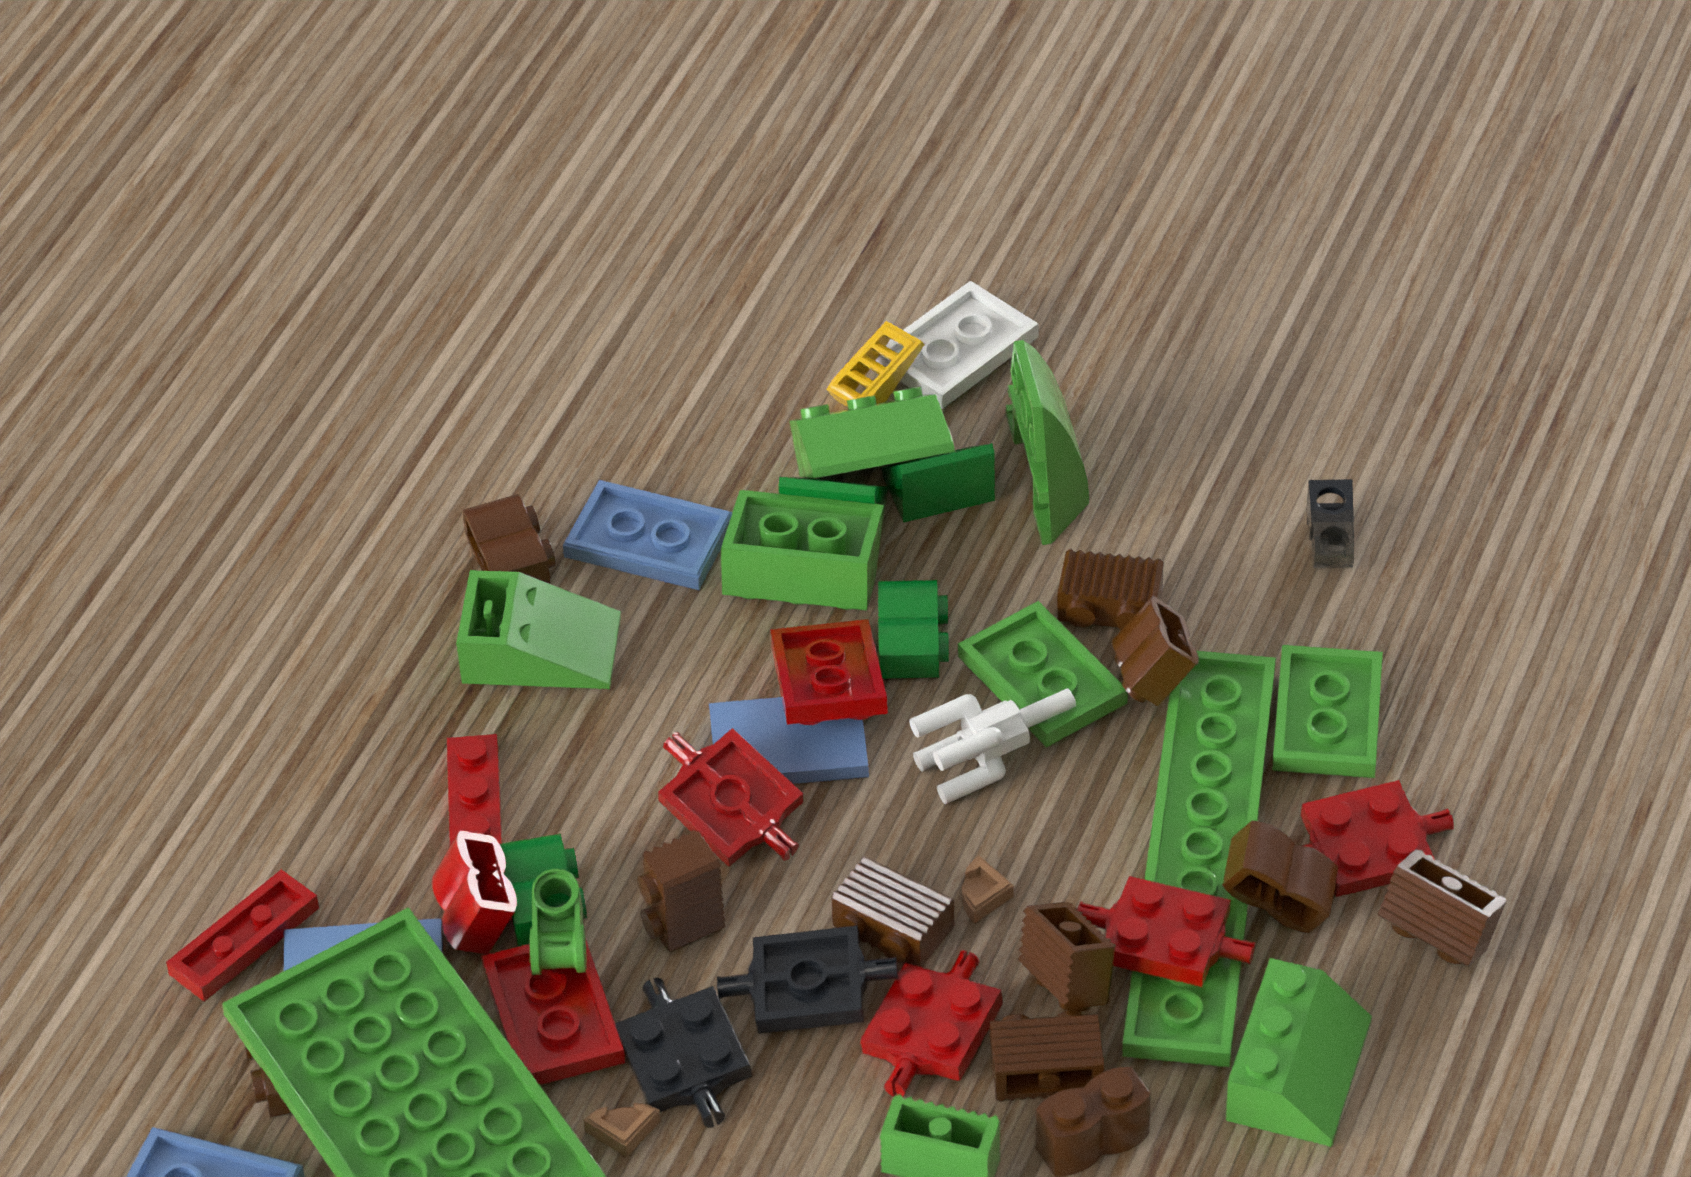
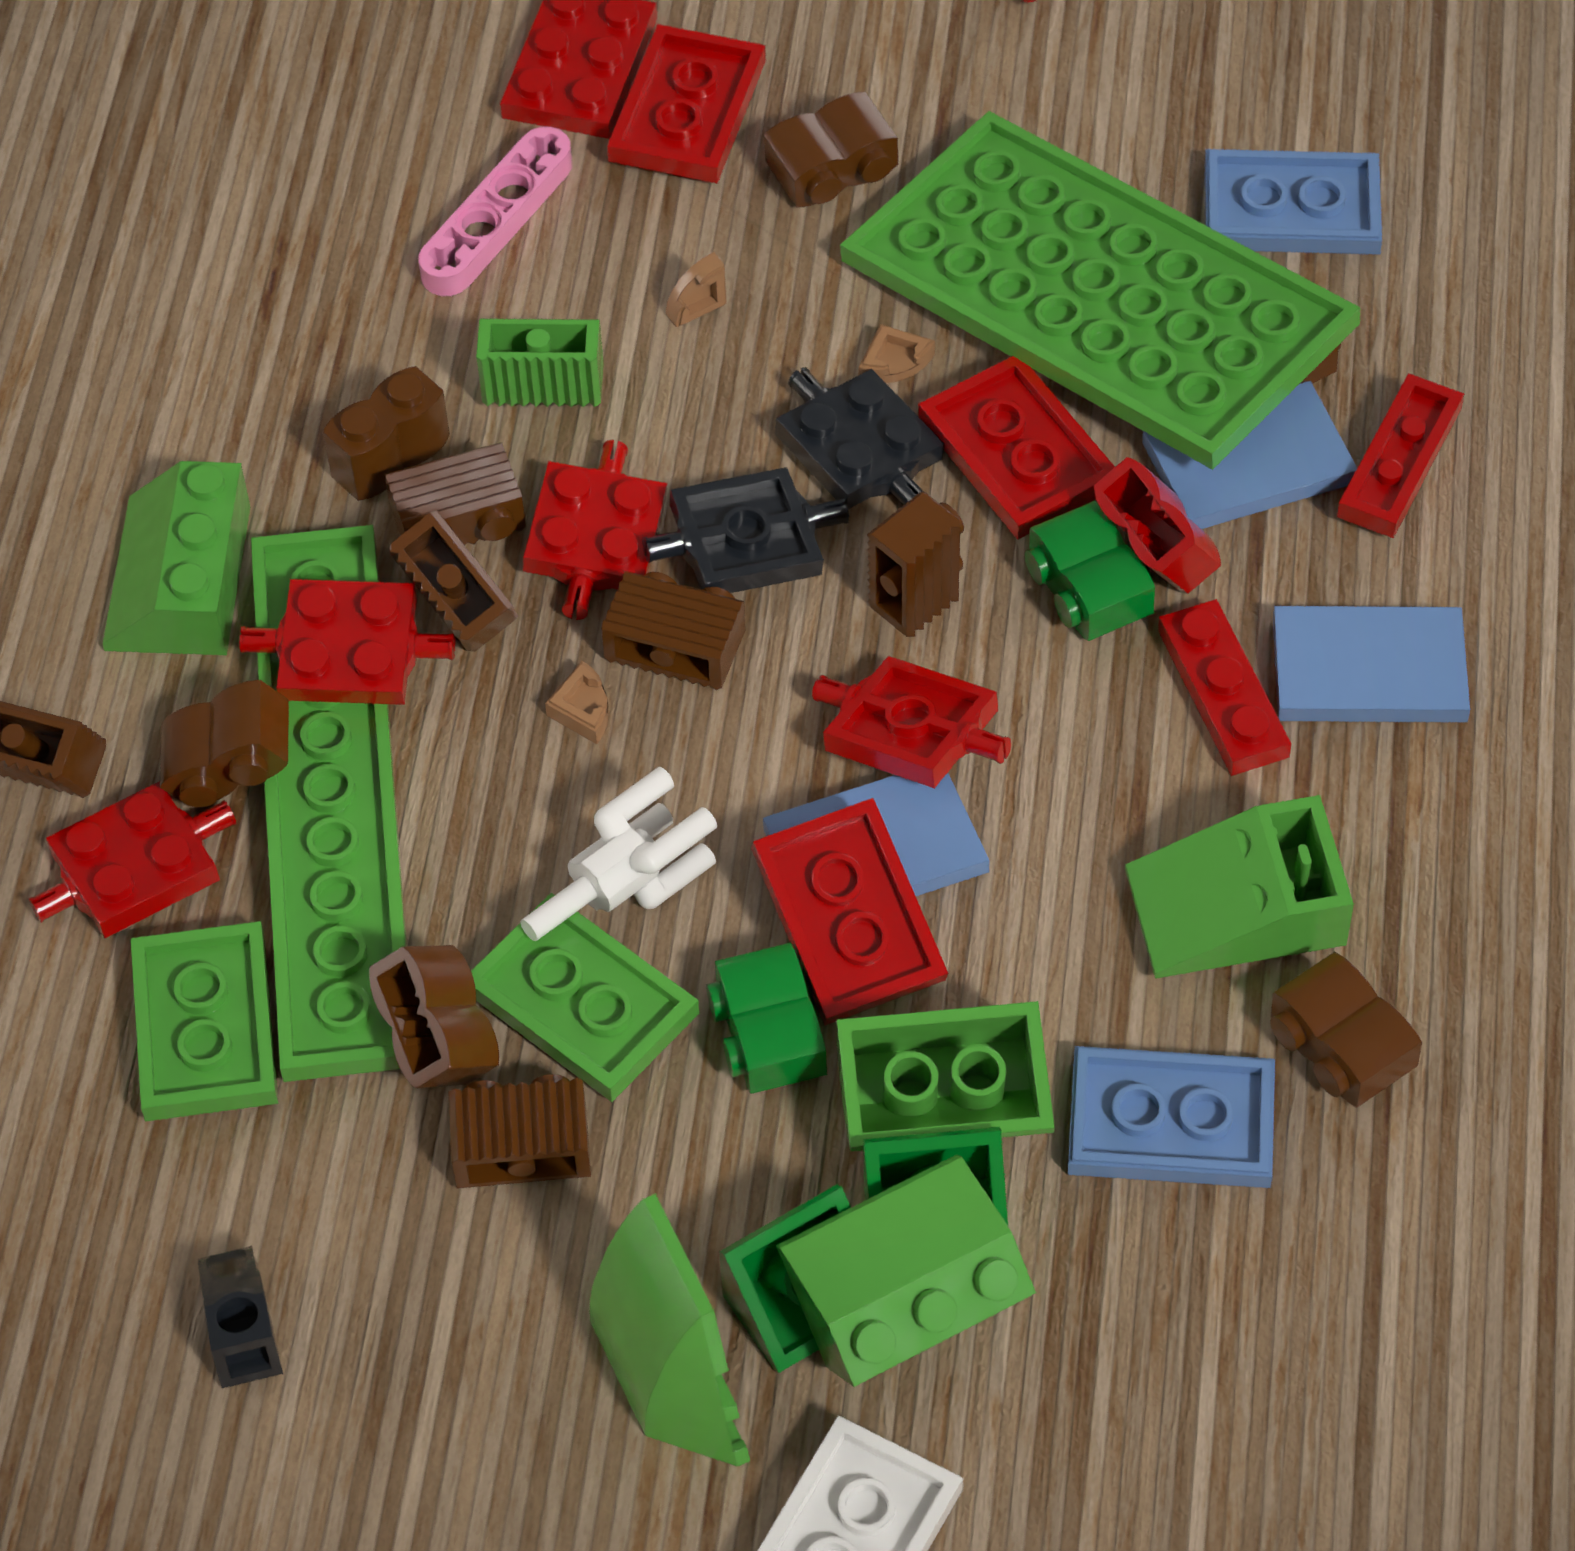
camera: 165 degrees right, 10 degrees up
(354, 792) = (1370, 664): none -> medium blue tile
(557, 932) = (1037, 484): bright green piece -> none
(854, 372) = (951, 1423): yellow slope -> none

